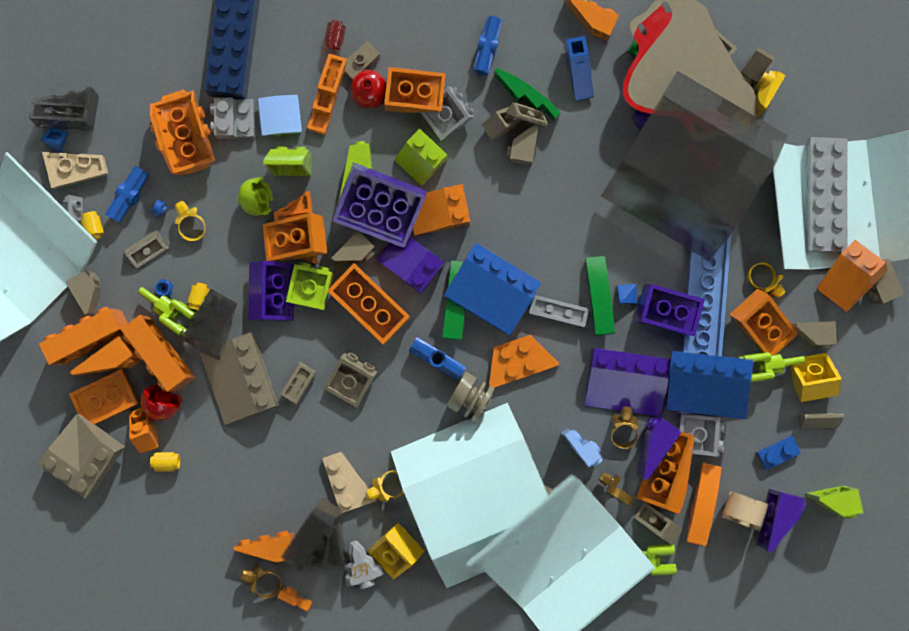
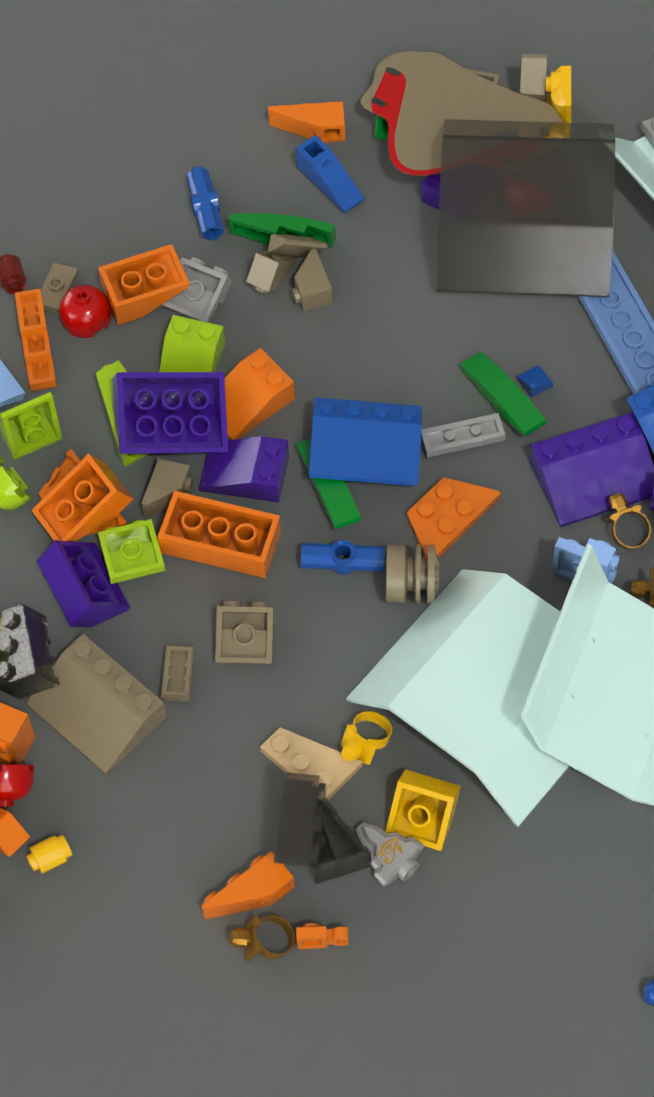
camera: 25 degrees left, 25 degrees down
(669, 309) = (594, 366): dark purple slope -> none

